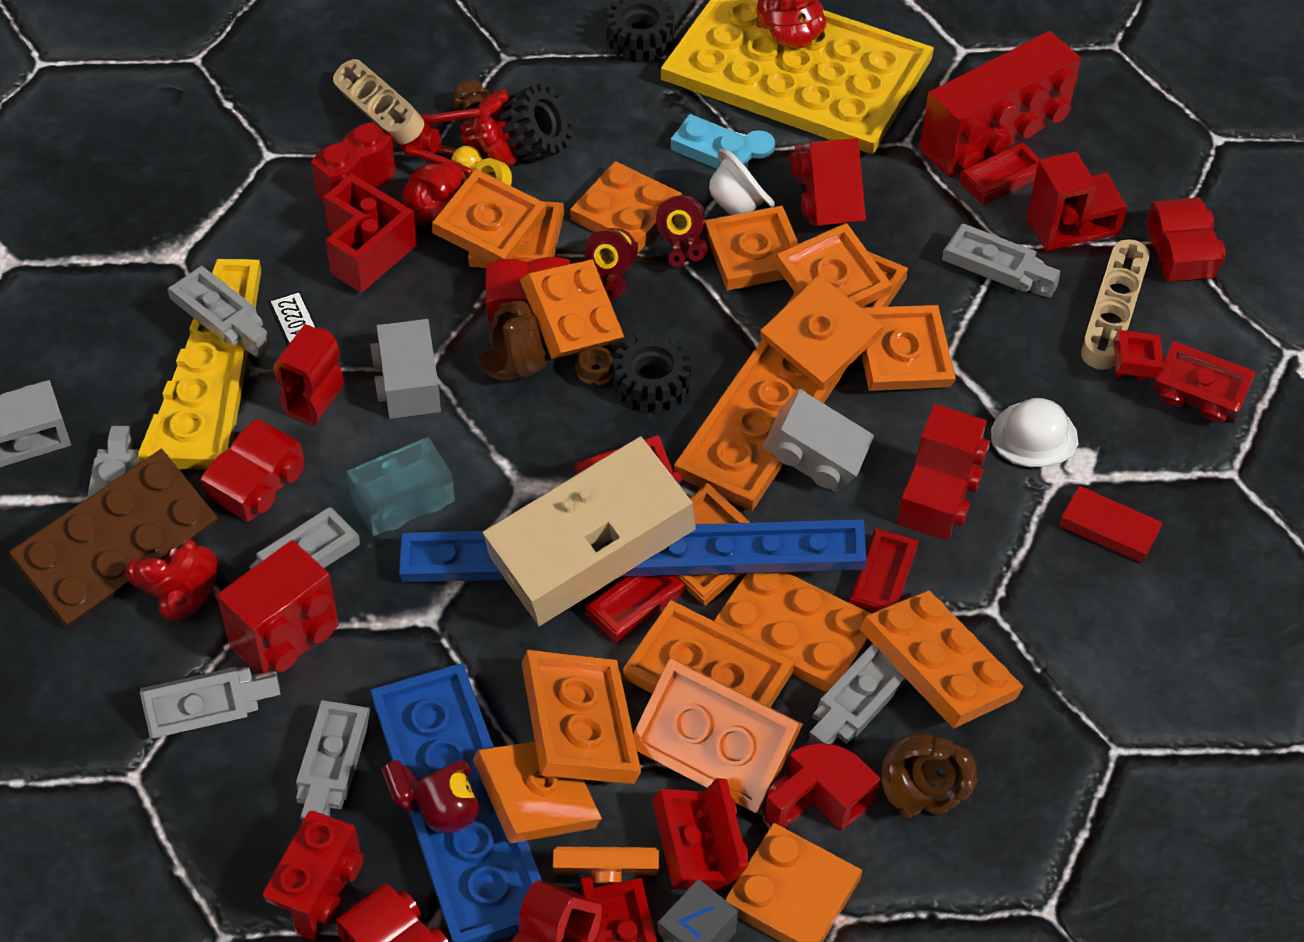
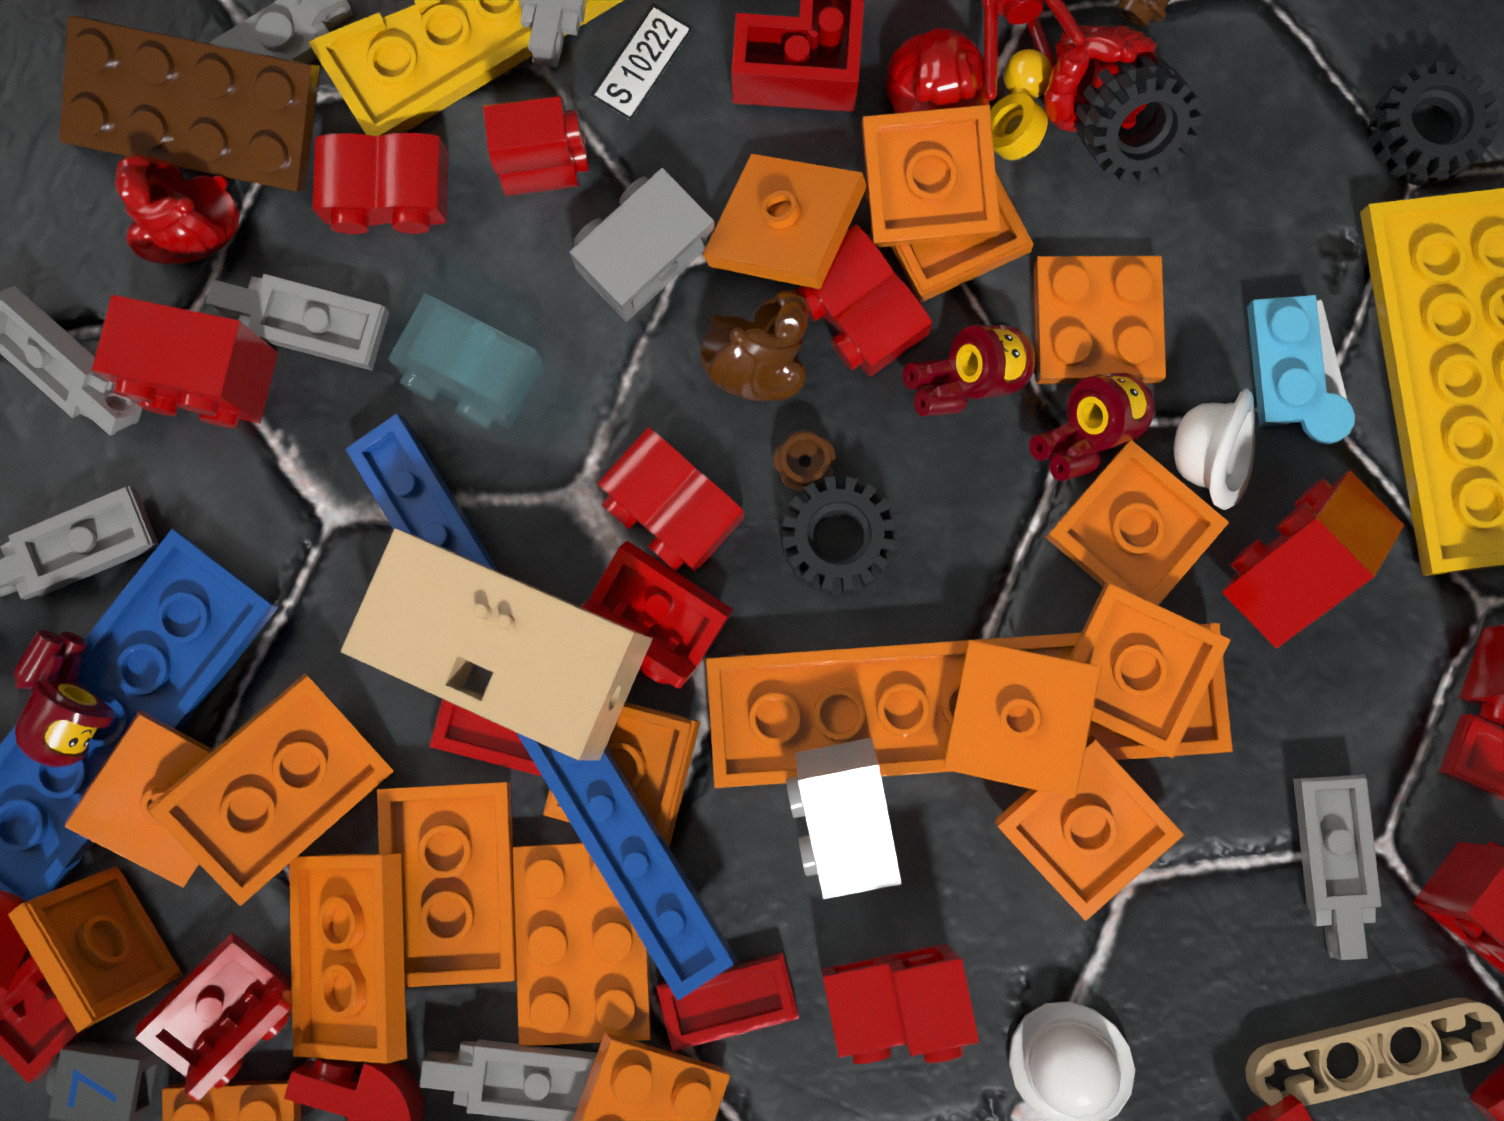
camera: 60 degrees right, 30 degrees up
(455, 294) = (785, 220): none -> orange plate
(566, 433) = (670, 501): none -> red brick
(571, 308) = (849, 381): orange plate -> none

